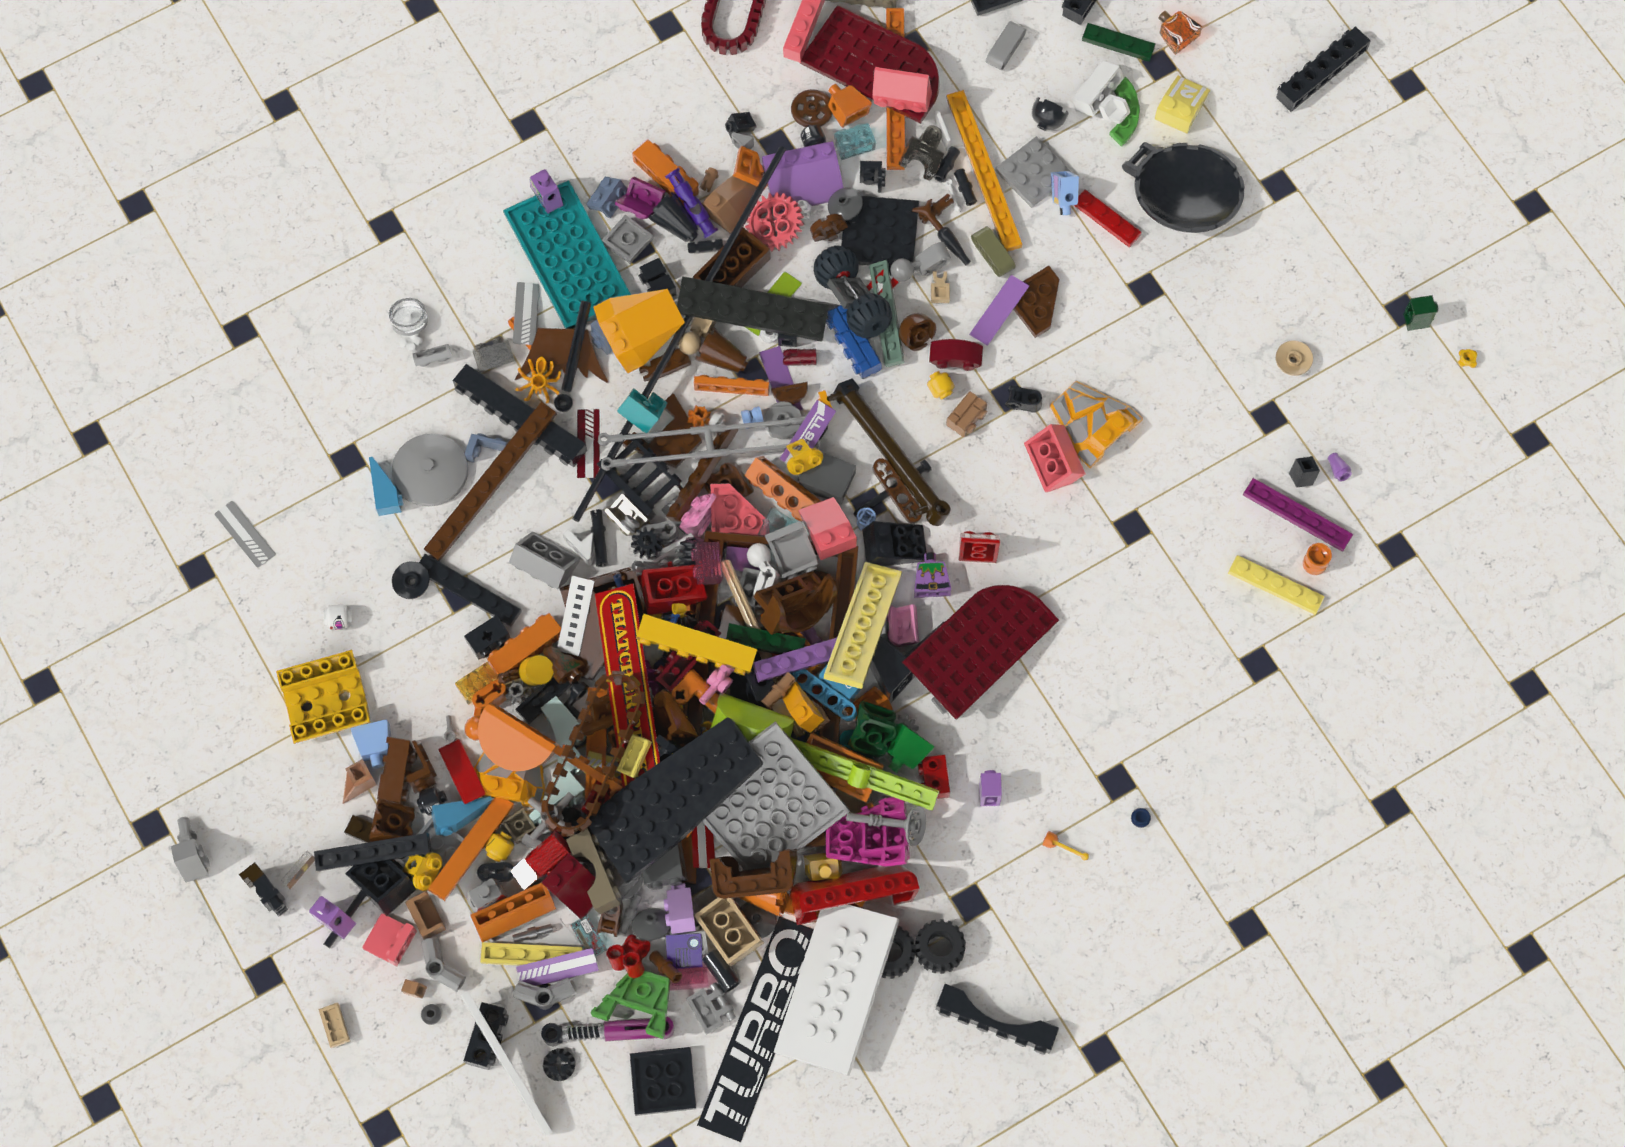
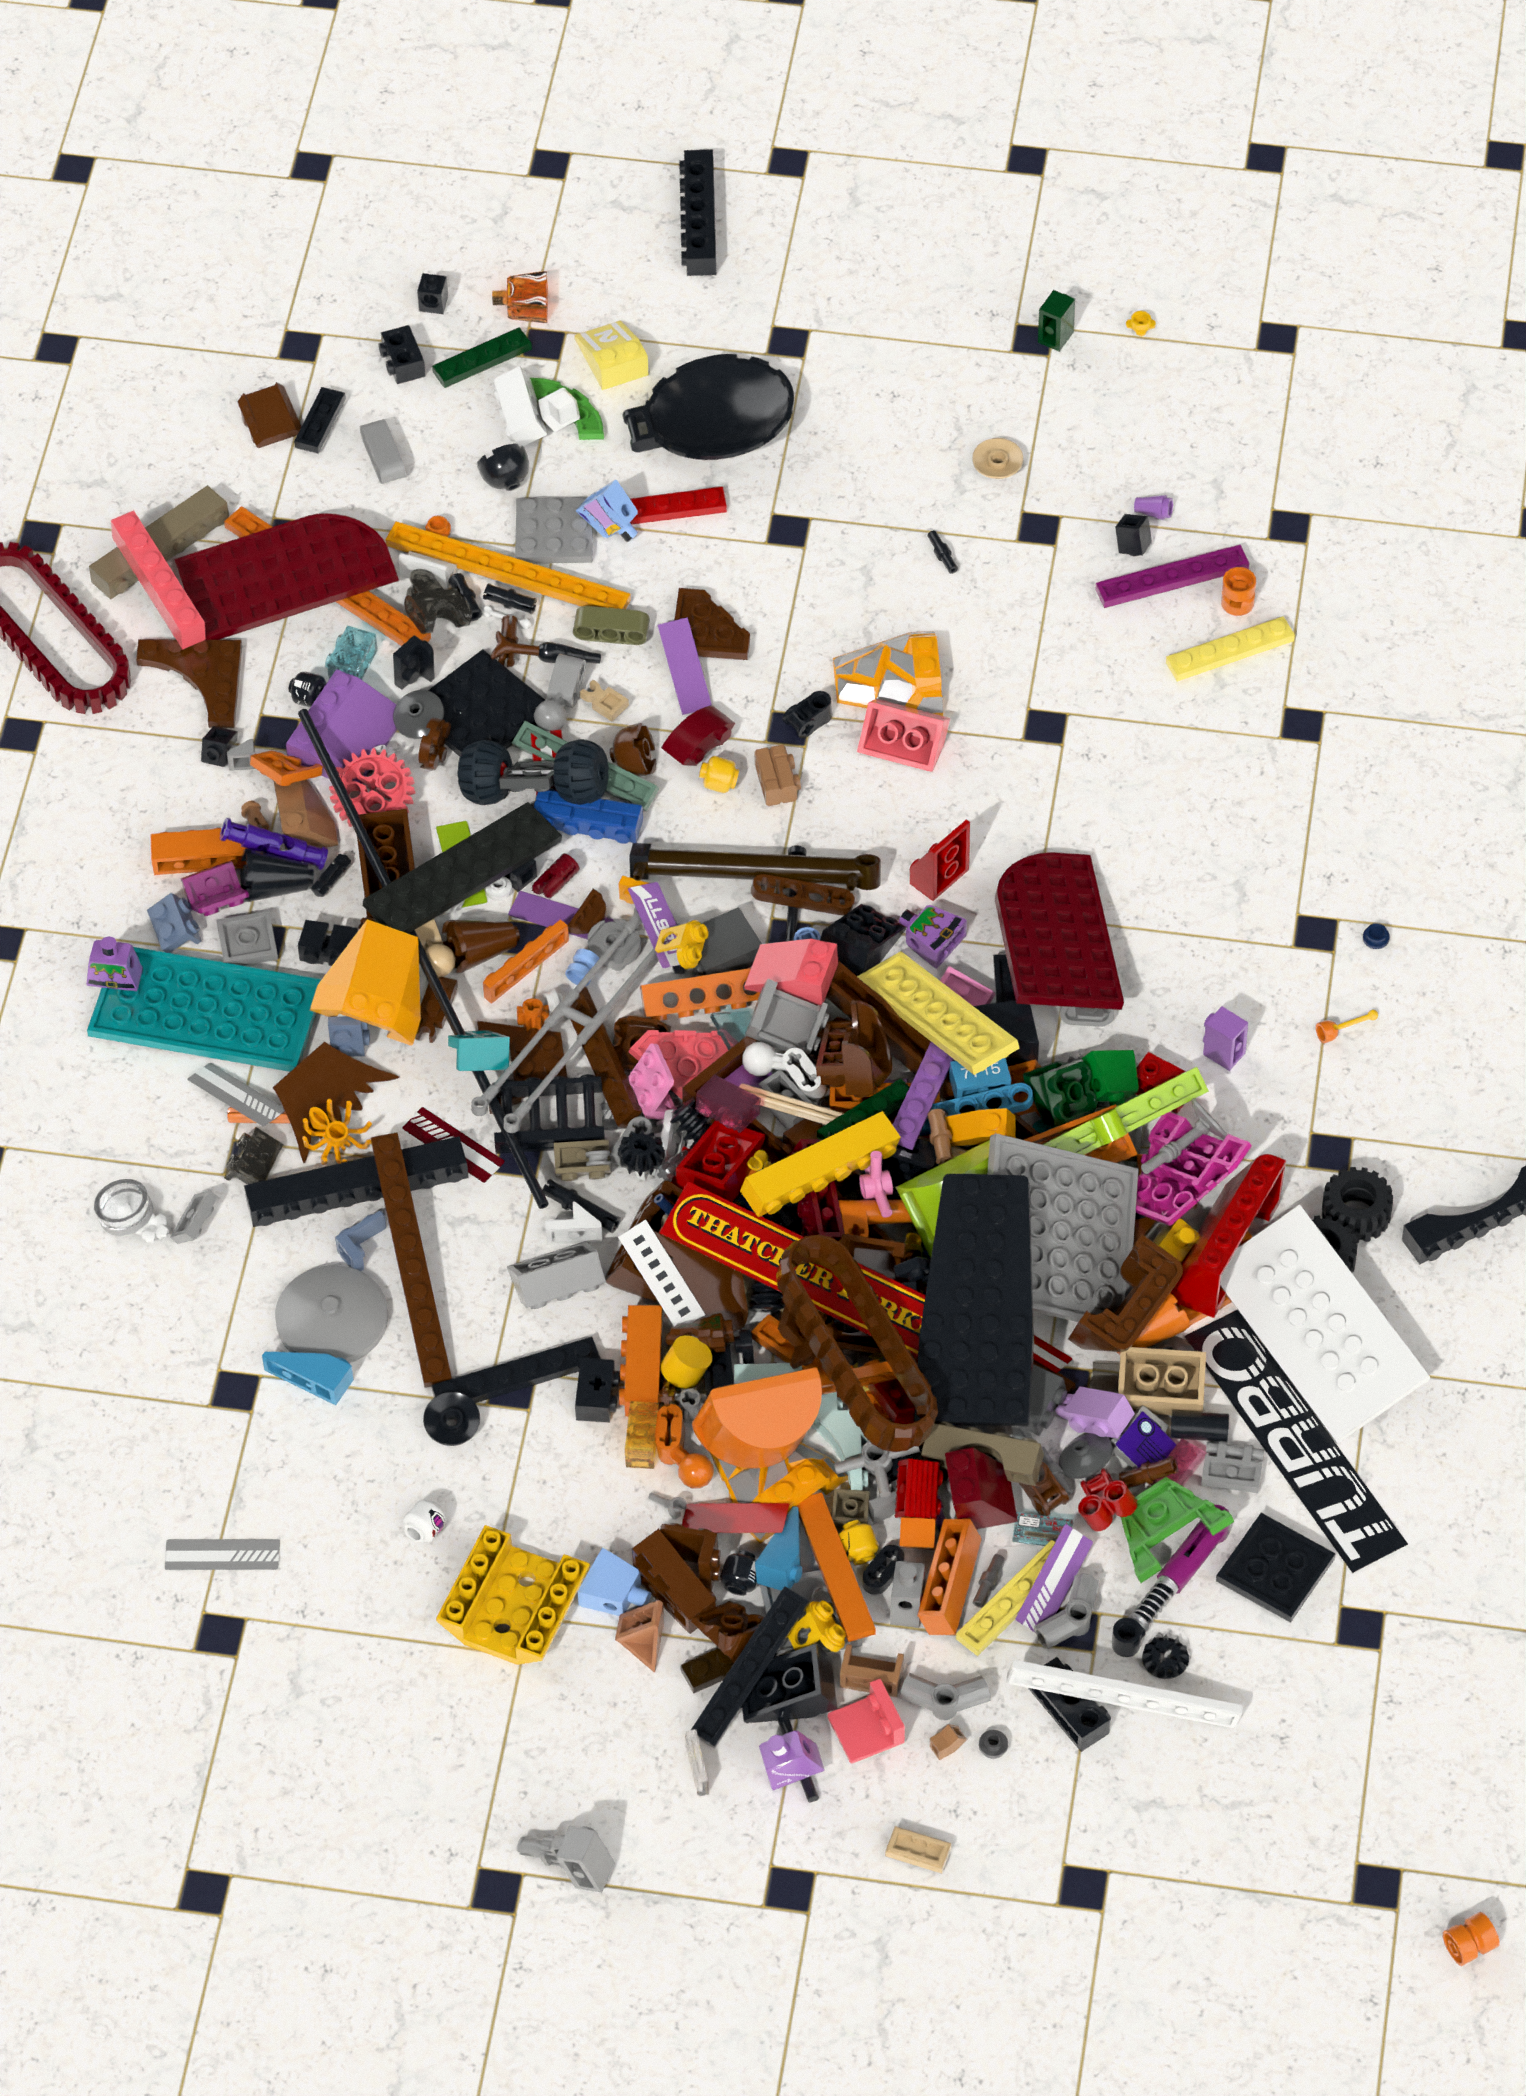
camera: 50 degrees left, 15 degrees down
(269, 895) = (693, 1806): black hips -> none
(563, 398) = (380, 1126): black plate -> none
(576, 346) = (332, 1066): black axle -> none
(634, 756) = (894, 1306): light yellow plate -> none
(786, 79) = (206, 666): none -> reddish brown plate
(813, 113) = (261, 654): reddish brown plate -> none
(848, 104) = (302, 631): orange torso -> none
(901, 89) = (350, 559): coral slope -> none
(981, 114) = (438, 525): none -> orange plate
(1202, 380) = (942, 552): none -> black bar

